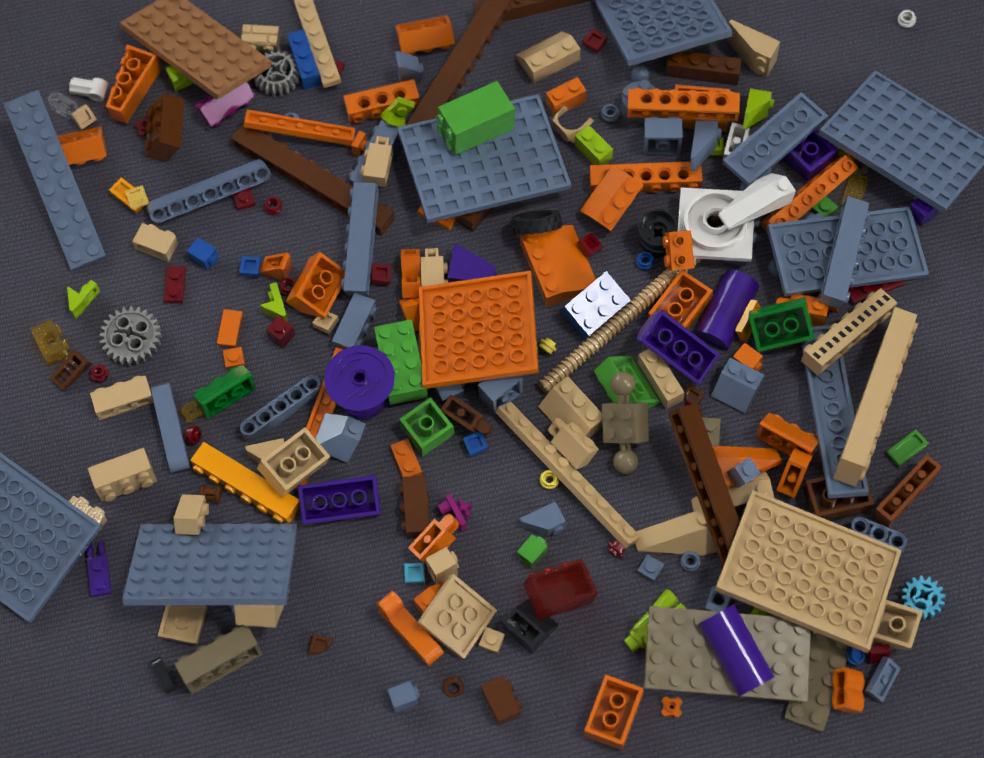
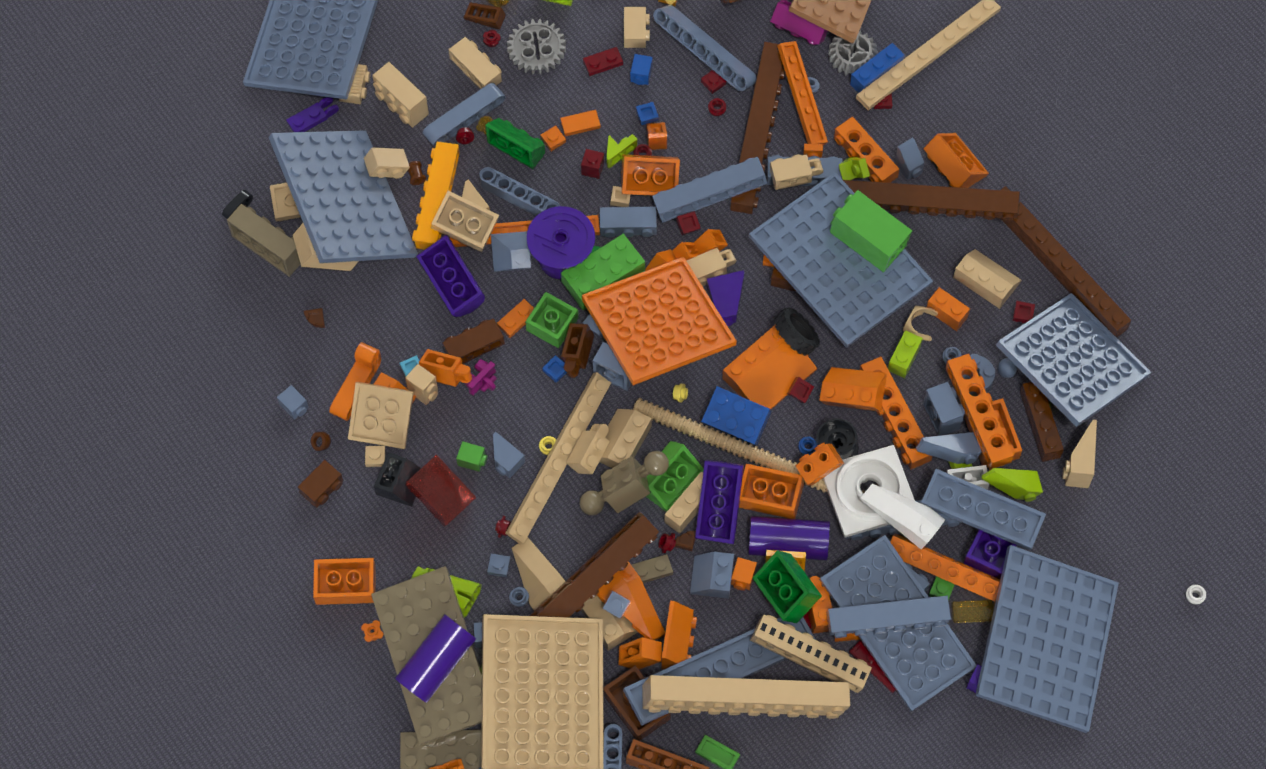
camera: 65 degrees right, 0 degrees up
(262, 37) = (882, 25): tan brick -> none

